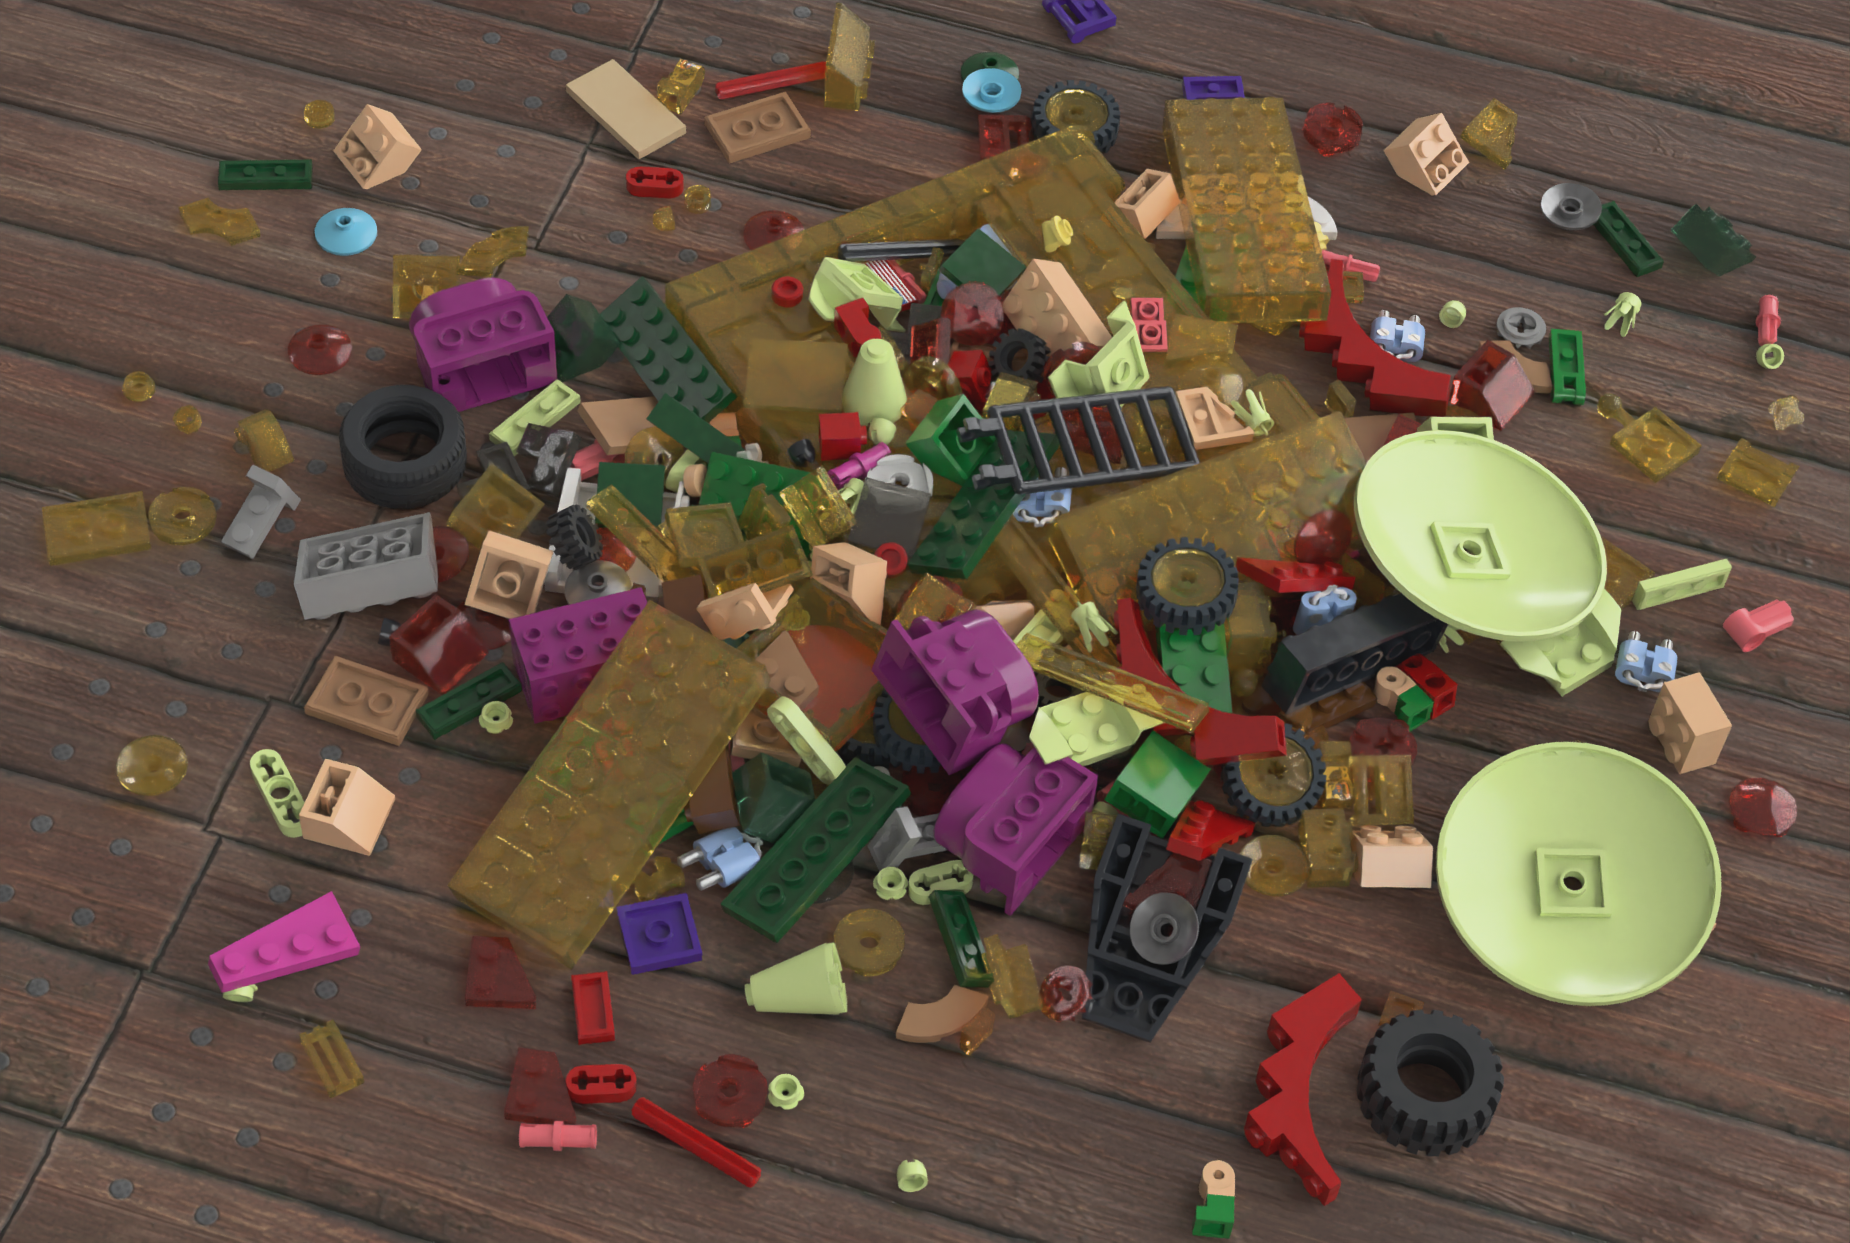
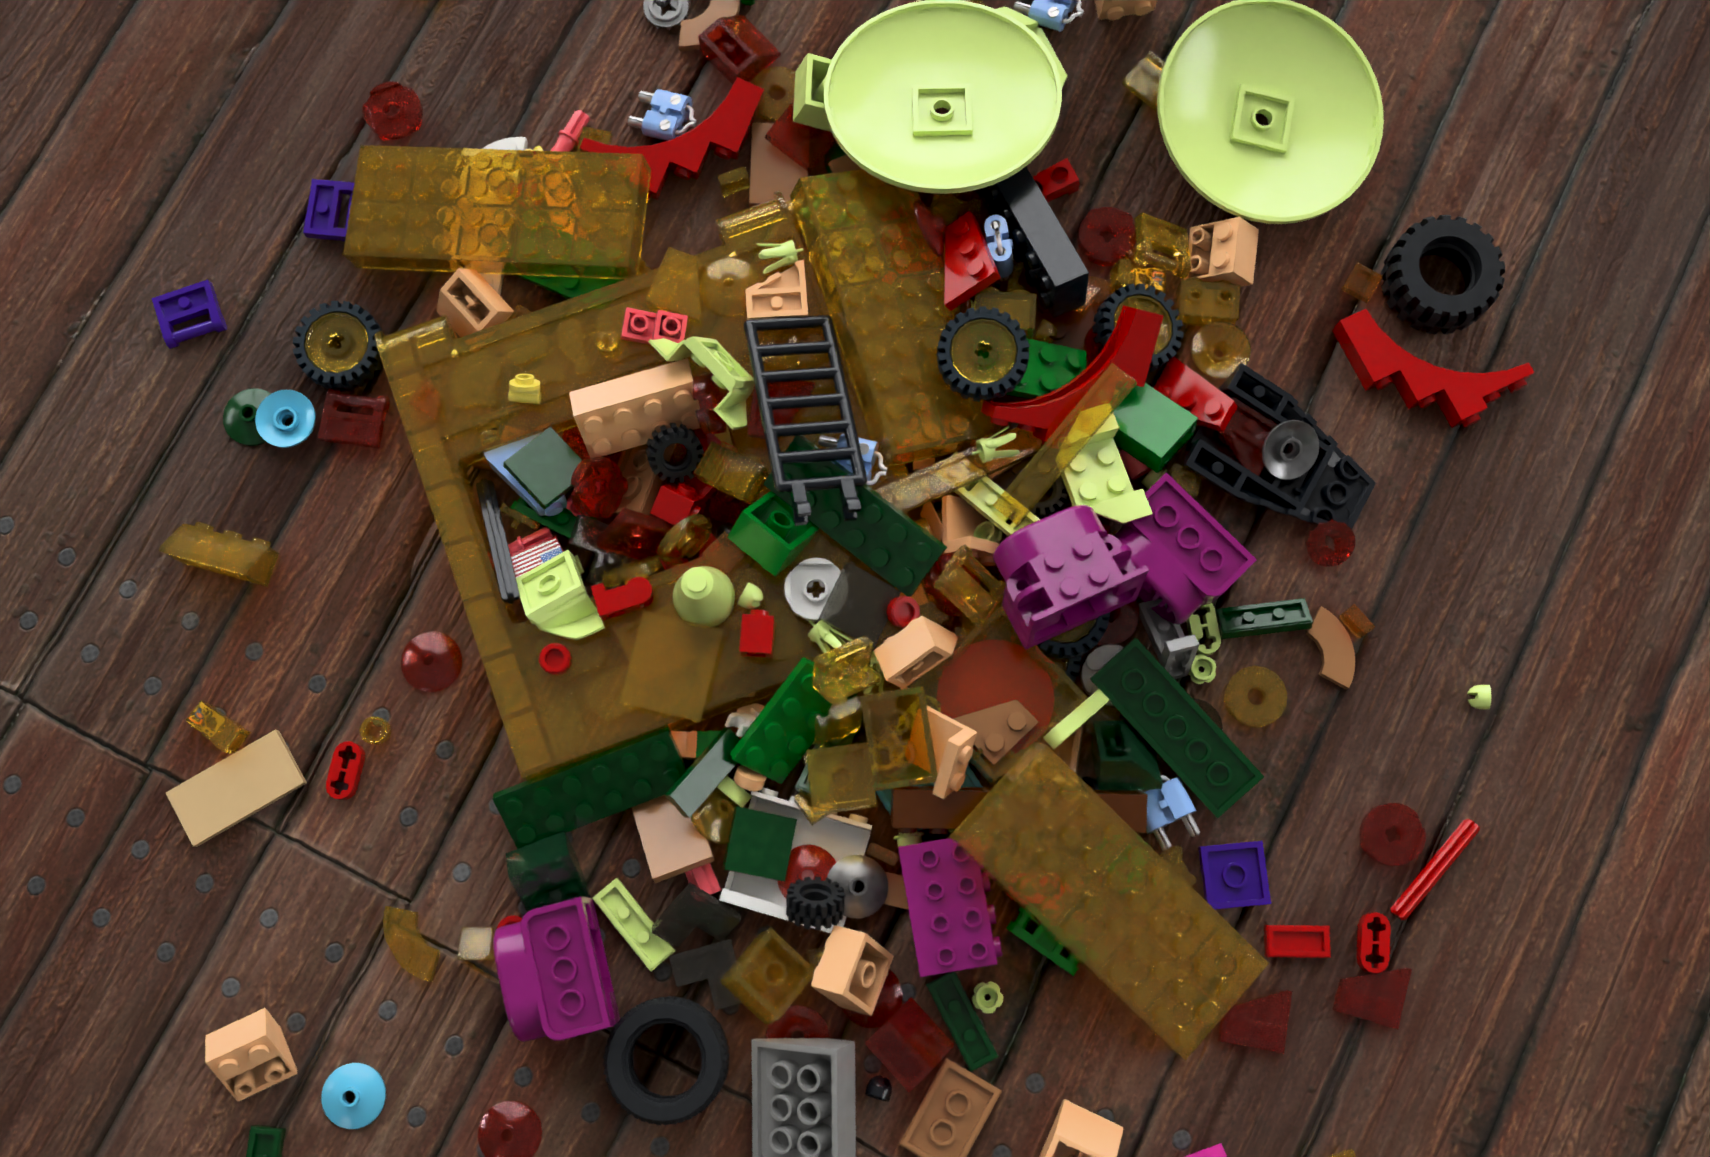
camera: 75 degrees left, 25 degrees up
(319, 114) = (182, 1113): clear yellow tile -> none
(419, 277) = (450, 1018): clear yellow slope -> none
(558, 1135) = (1423, 985): coral pin -> none
(639, 535) = (822, 839): clear yellow tile -> none
(664, 219) = (398, 767): clear yellow hinge -> none
(757, 127) = (286, 657): medium nougat tile -> none
(770, 80) = (225, 633): red axle -> none
(788, 1083) = (1402, 784): yellowish green plate -> none
(801, 452) = (764, 674): black hinge -> none
(801, 984) = (1305, 761): yellowish green cone -> none
(858, 465) = (788, 623): dark pink pin -> none
(1013, 977) = (1311, 581): clear yellow bracket -> none
(1218, 1192) = (1525, 461): leg -> none
(1403, 697) = (1070, 202): leg -> none
(1427, 154) = (443, 34): light nougat slope -> none
(1452, 314) = (641, 60): yellowish green hinge -> none

